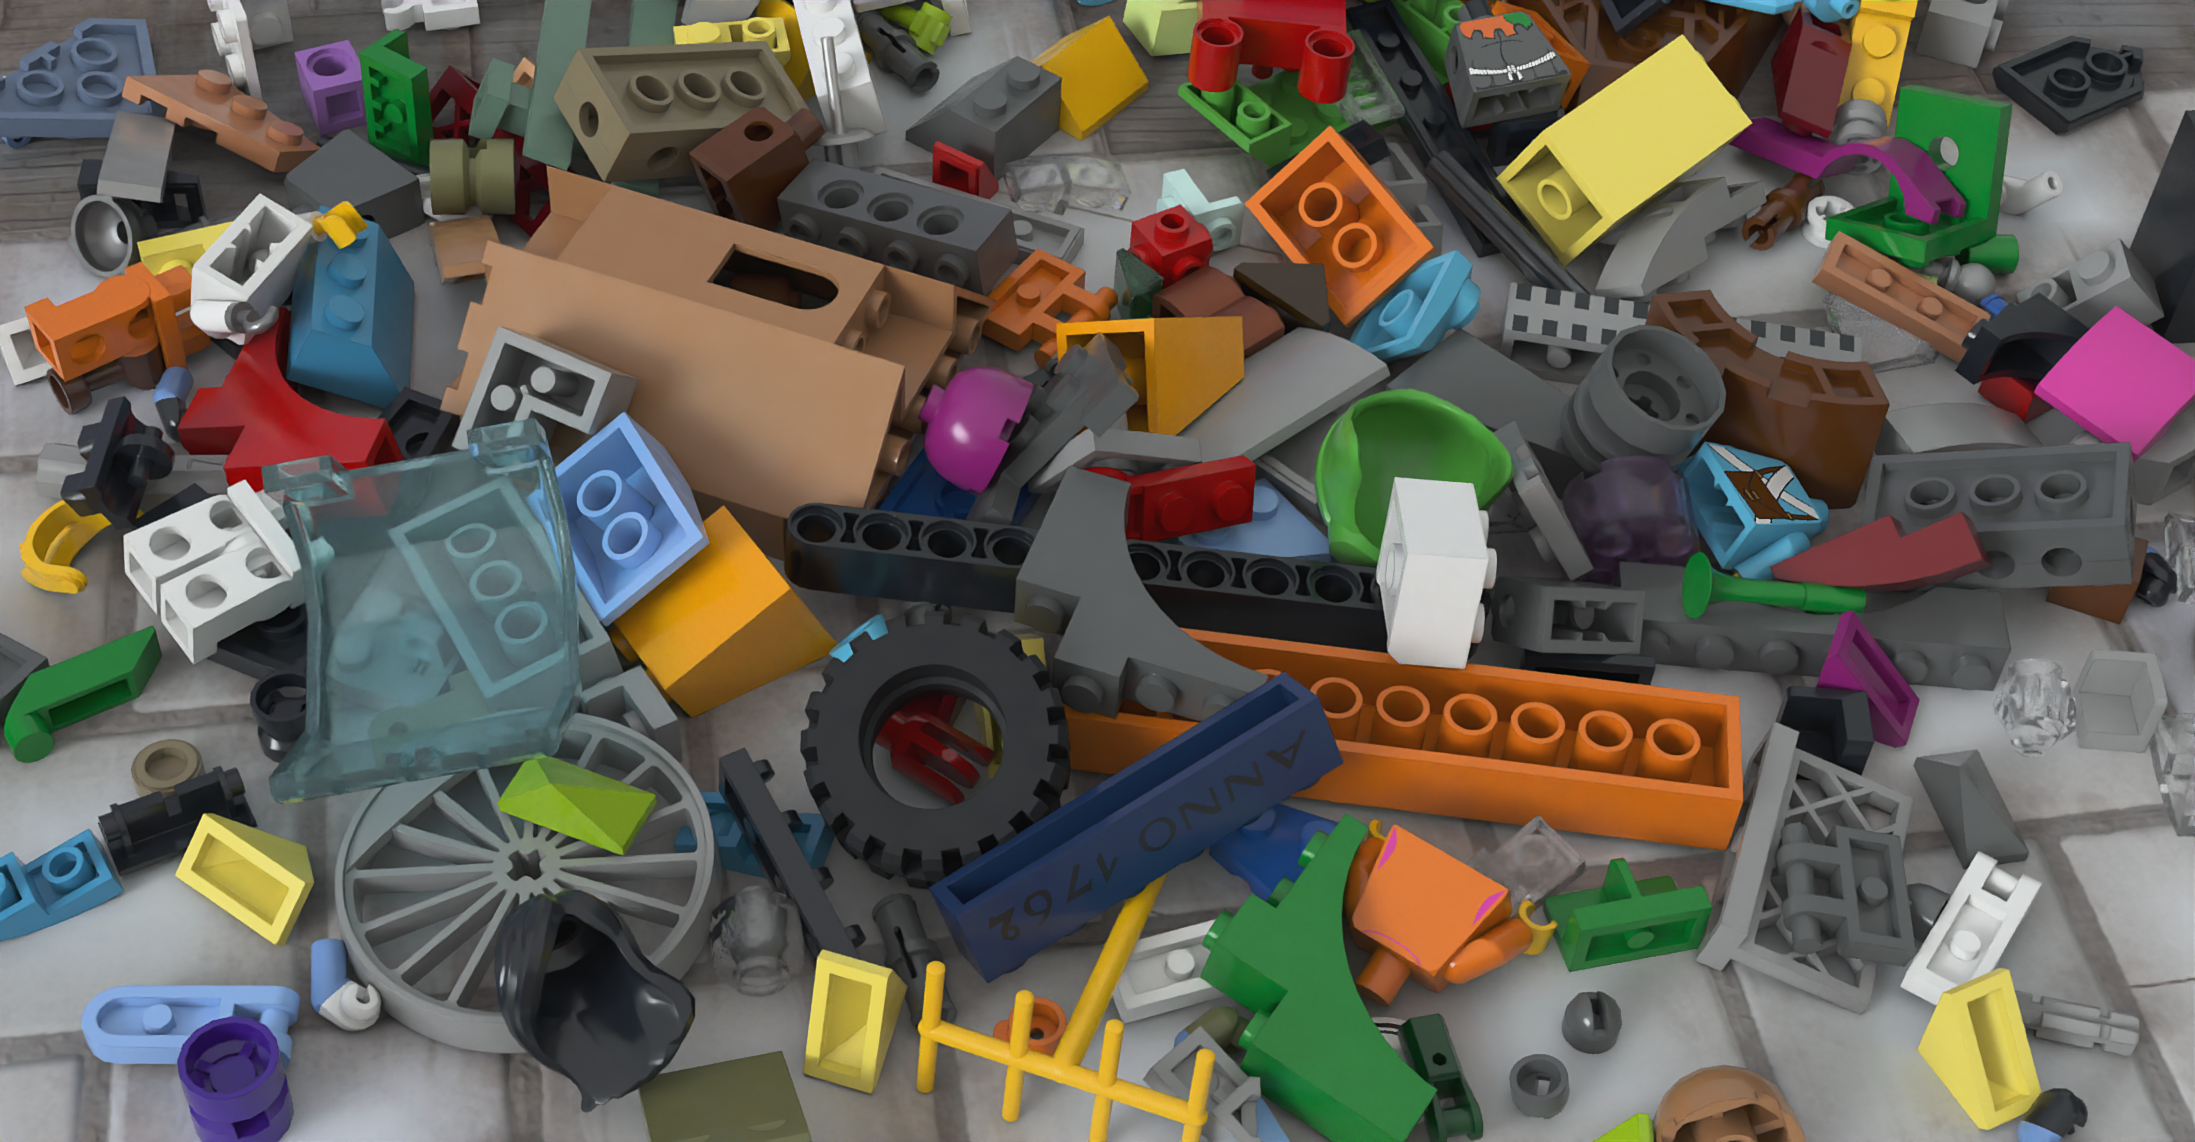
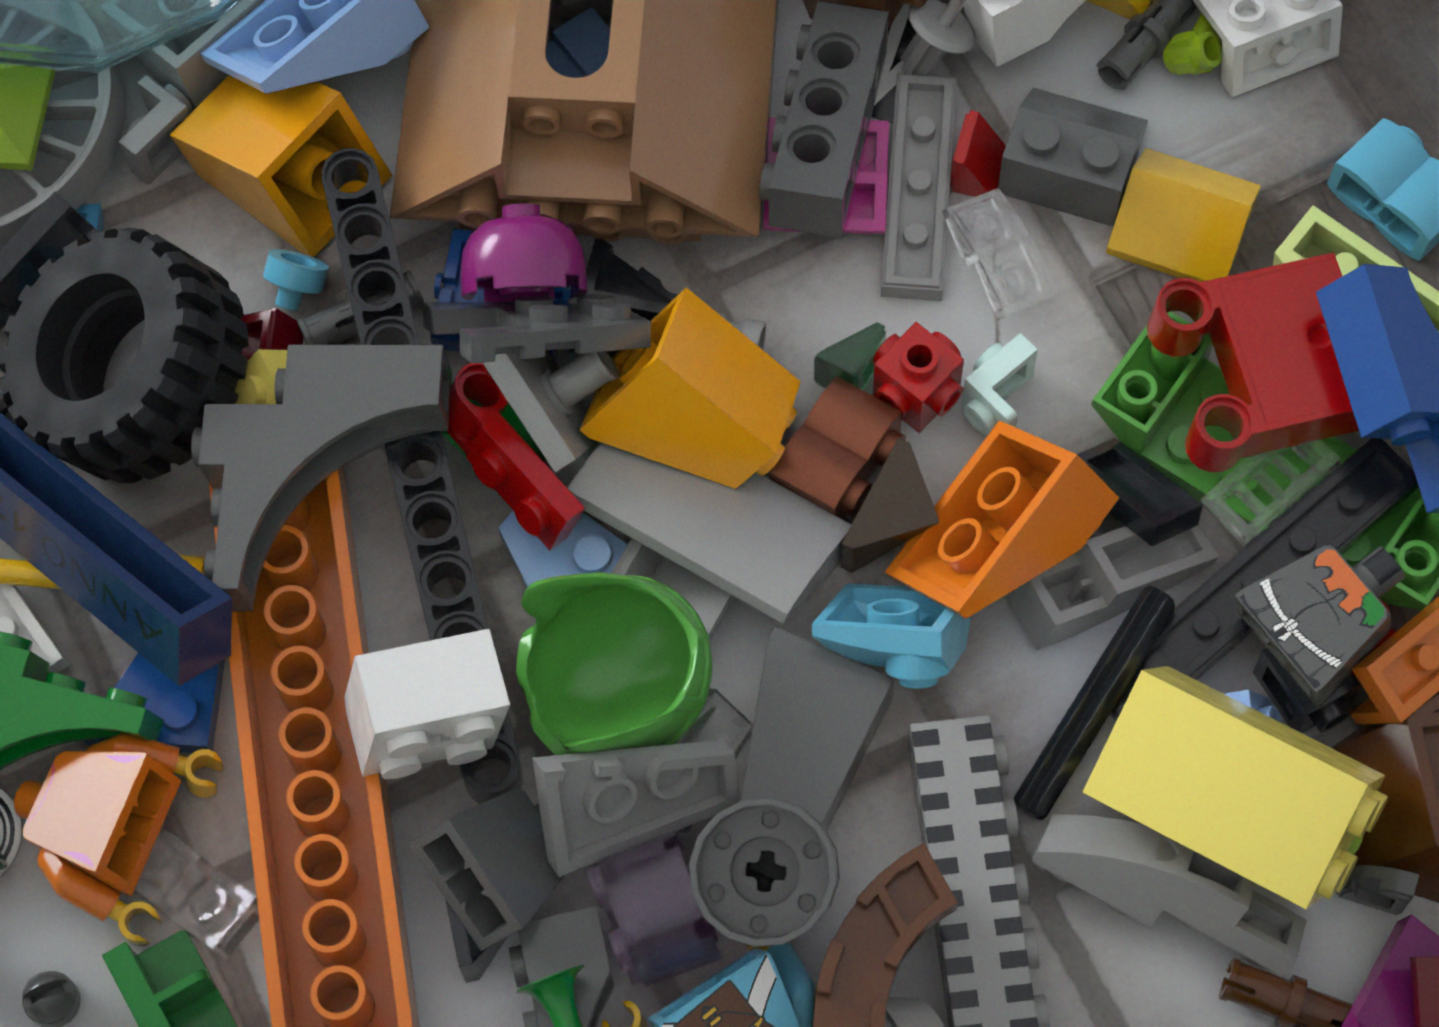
camera: 80 degrees right, 20 degrees up
(1035, 296) = (810, 273): orange plate -> none

